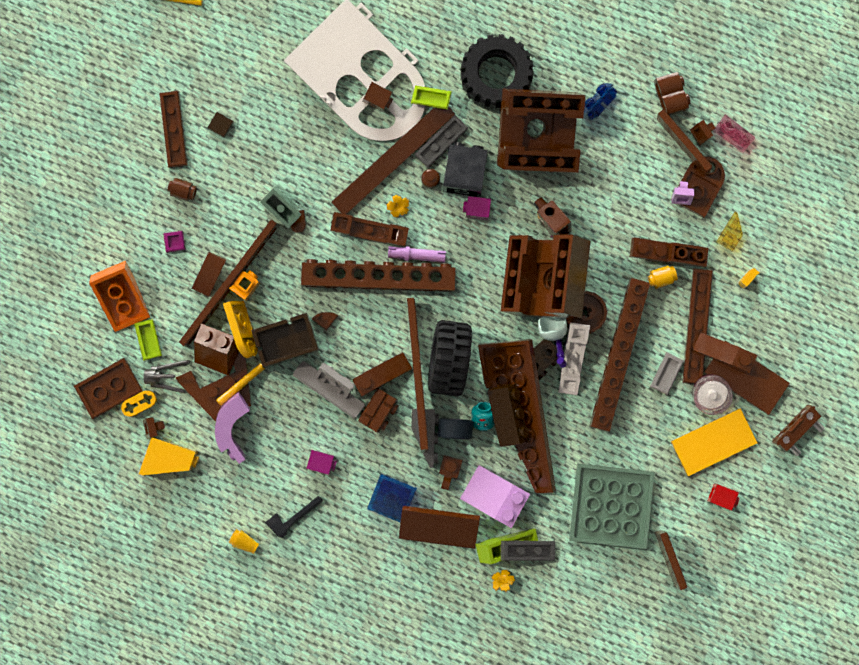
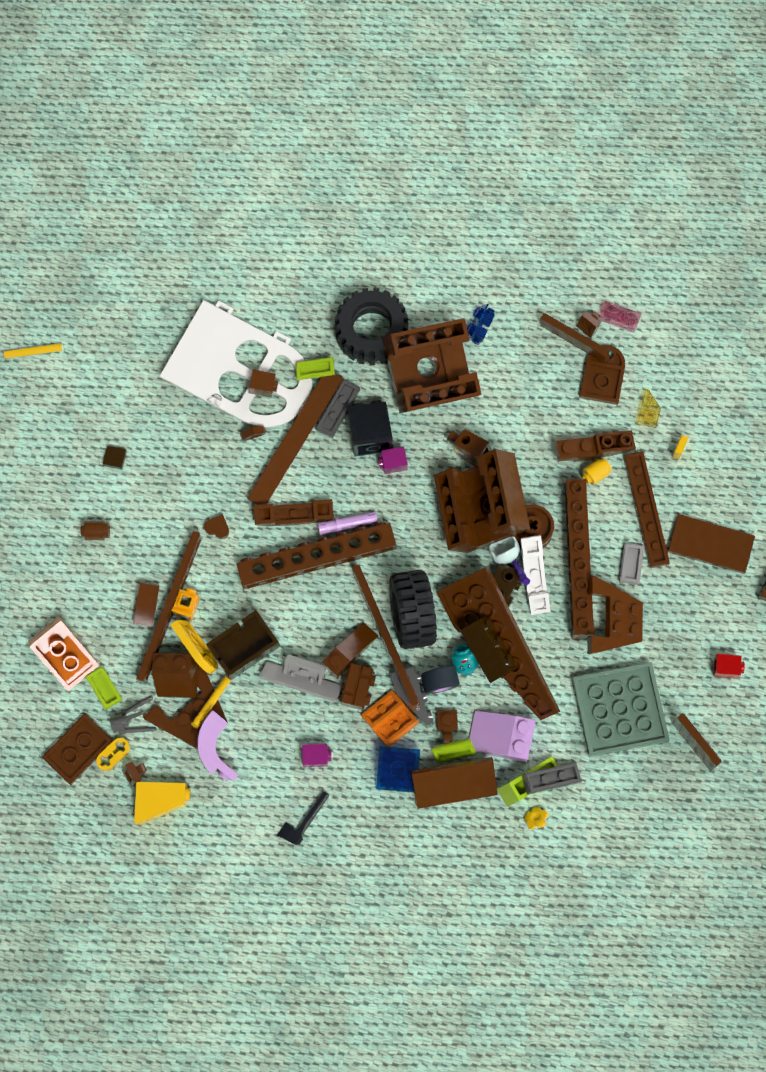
camera: 15 degrees left, 10 degrees down
(173, 129) = (69, 476): reddish brown tile -> none
(174, 241) = (102, 584): magenta tile -> none
(243, 541) = (260, 860): yellow cone -> none
(281, 207) = (199, 517): sand green slope -> none
(325, 319) = (276, 614): reddish brown tile -> none
(352, 141) = (253, 432): none -> reddish brown tile
(398, 206) = (315, 482): yellow plant -> none
(398, 449) = (390, 719): none -> orange slope
(430, 178) = (338, 447): reddish brown piece -> none
(447, 496) = (453, 750): none -> lime tile
(640, 425) = (623, 618): none -> reddish brown wing
(671, 93) = (547, 296): reddish brown brick -> none
(682, 194) = (590, 387): lavender tile -> none
(712, 394) = (683, 569): clear piece -> none
(714, 442) = (700, 616): yellow tile -> none
(725, 353) = (682, 525): reddish brown slope -> none

